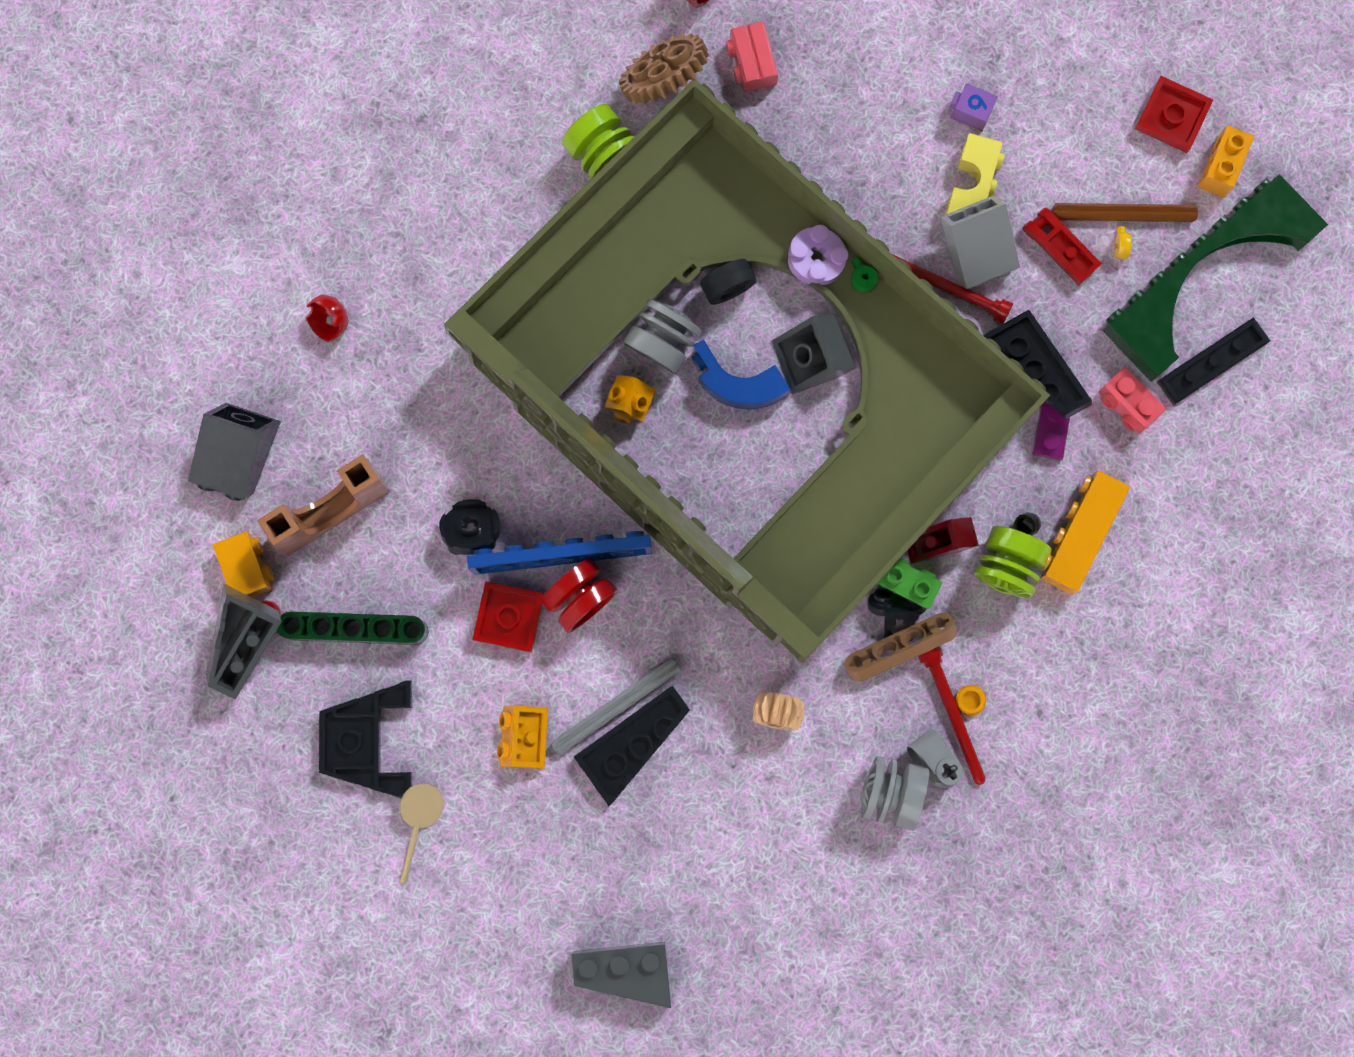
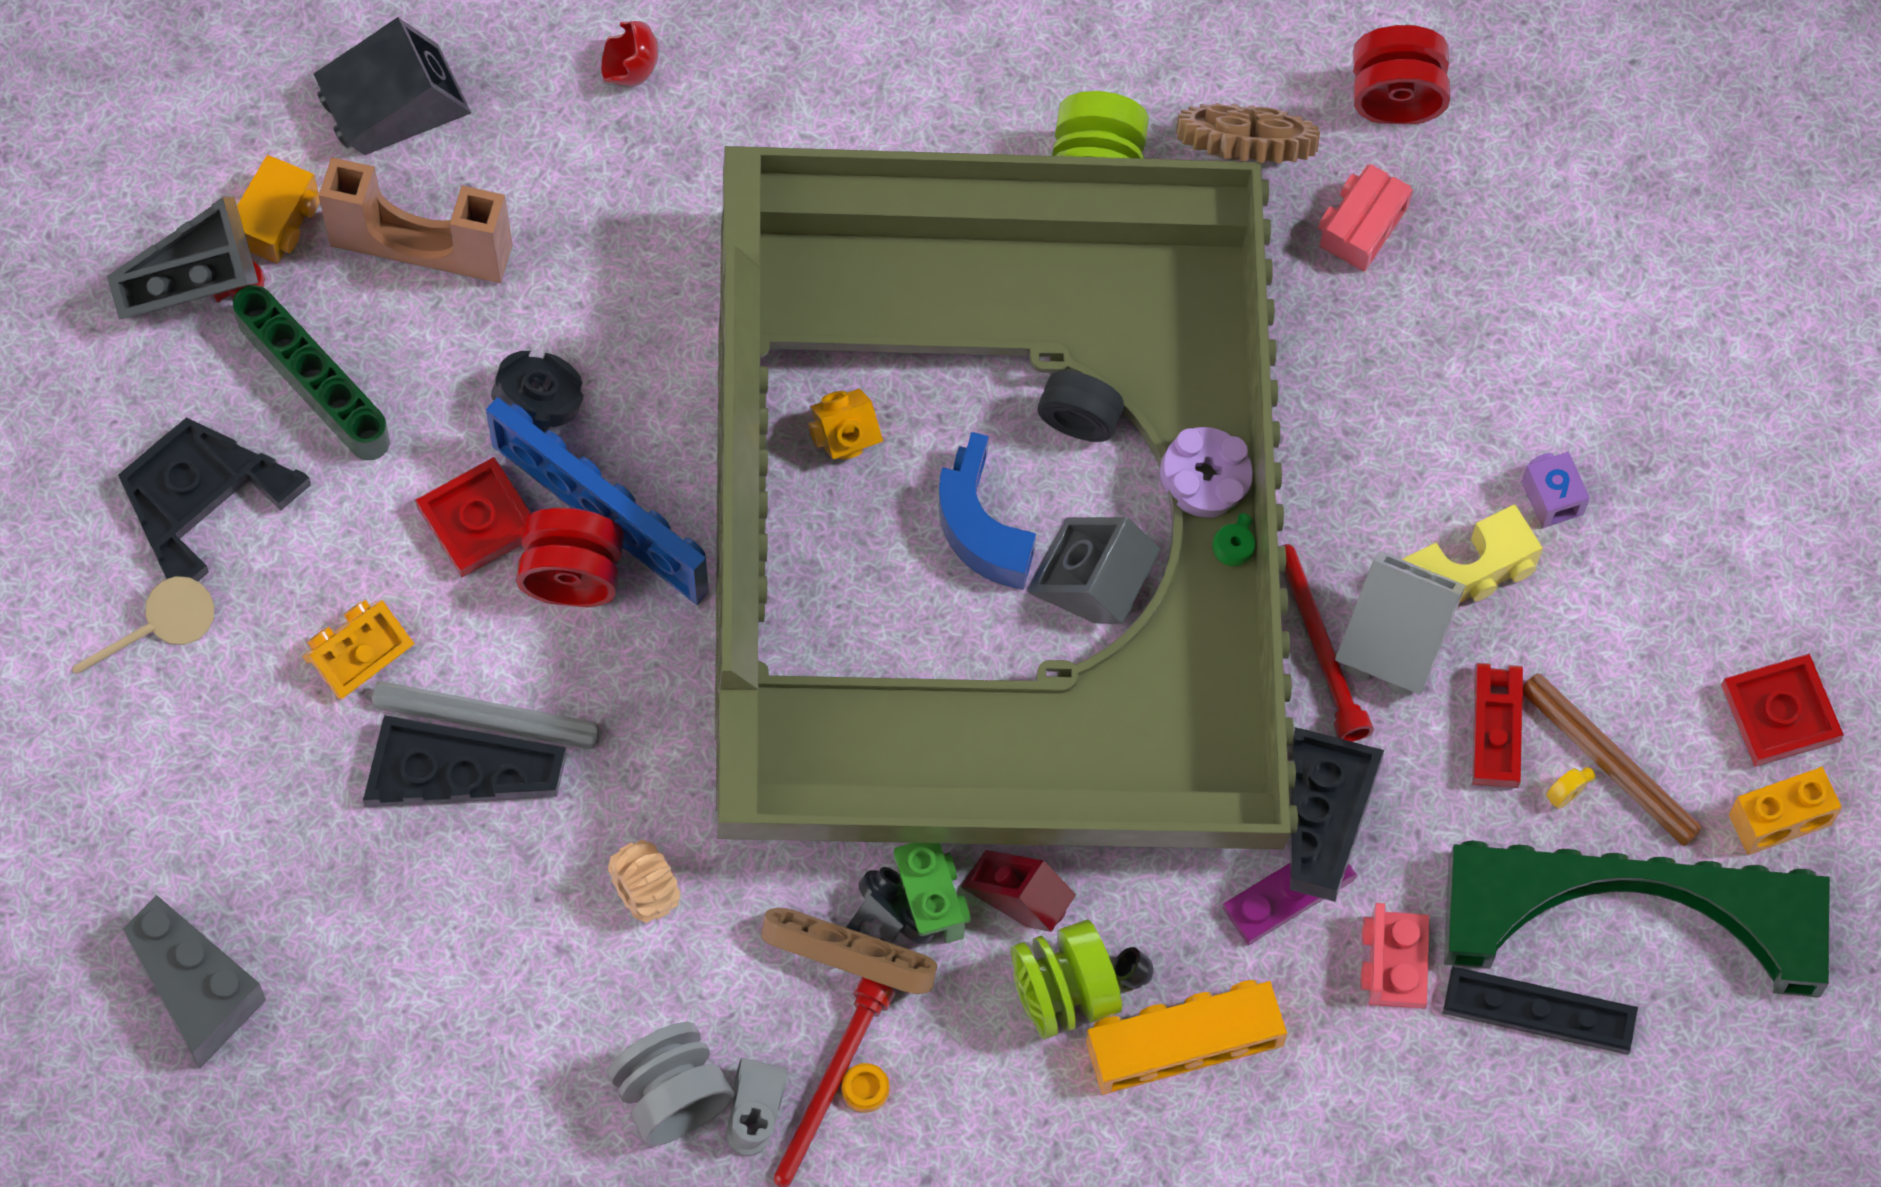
camera: 45 degrees right, 15 degrees down
(663, 335) = (947, 390): light grey wheel -> none

